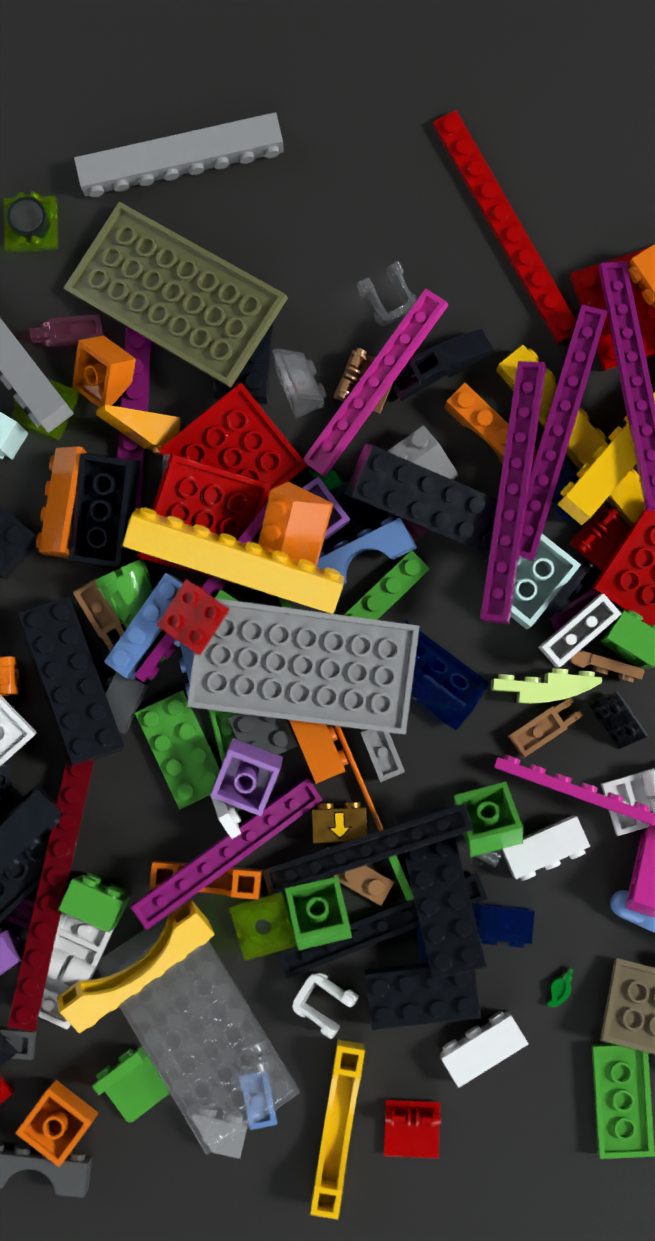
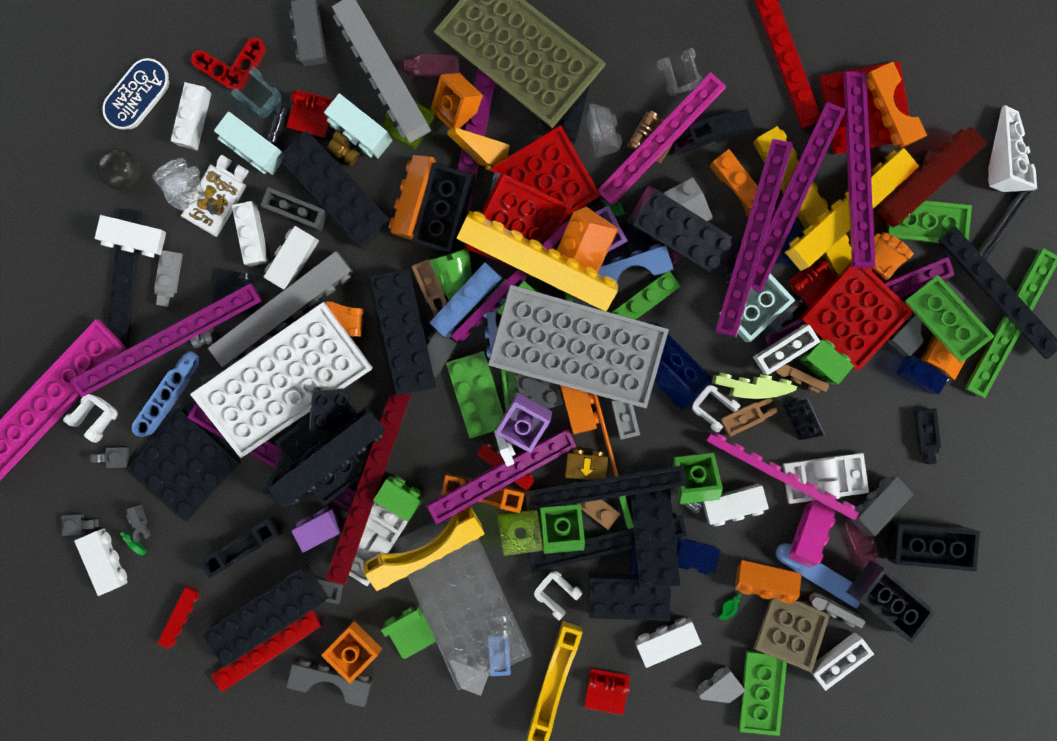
camera: 10 degrees right, 5 degrees up
(193, 617) = (502, 299): red hinge -> none
(215, 831) = (495, 459): none -> red piece
(490, 698) = (715, 425): none -> white piece
(565, 1101) = (721, 687): none -> light grey slope
(605, 946) = (768, 582): none -> orange brick

